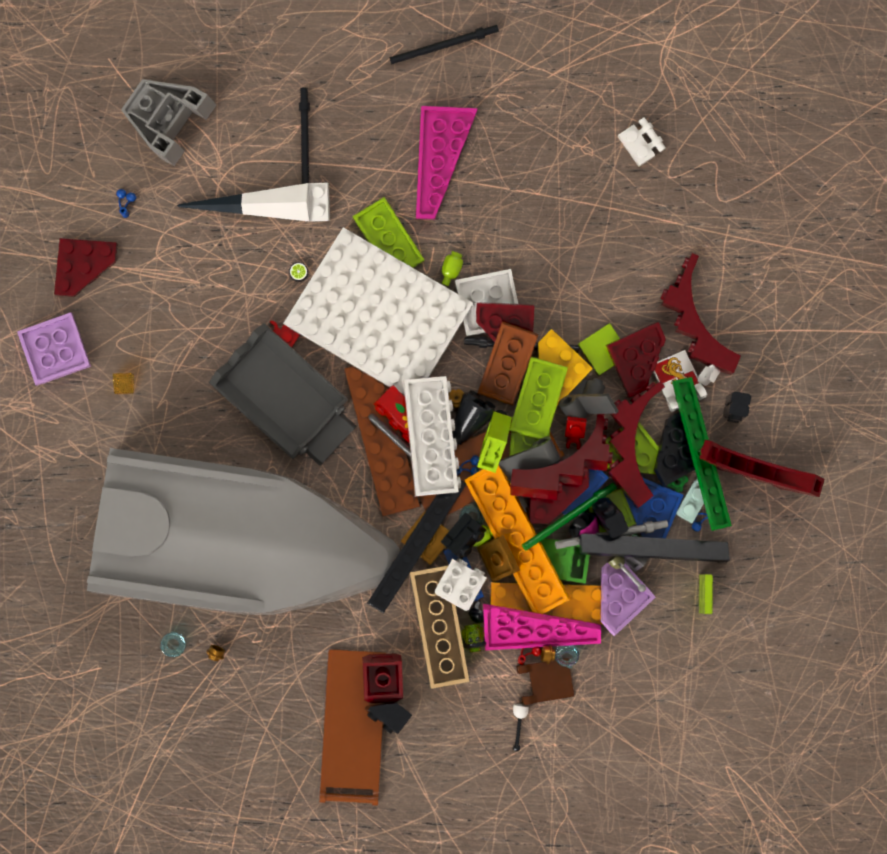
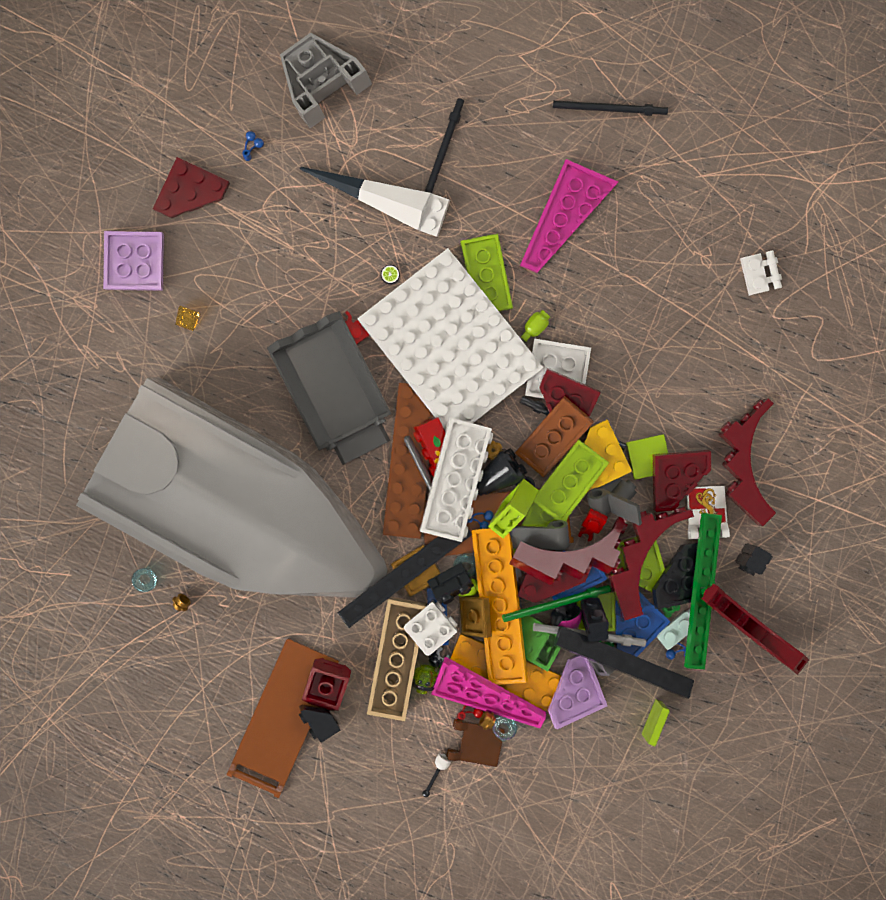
camera: 20 degrees right, 5 degrees up
(617, 563) = (586, 664): hinge -> none
(711, 374) = (738, 518): white piece -> none

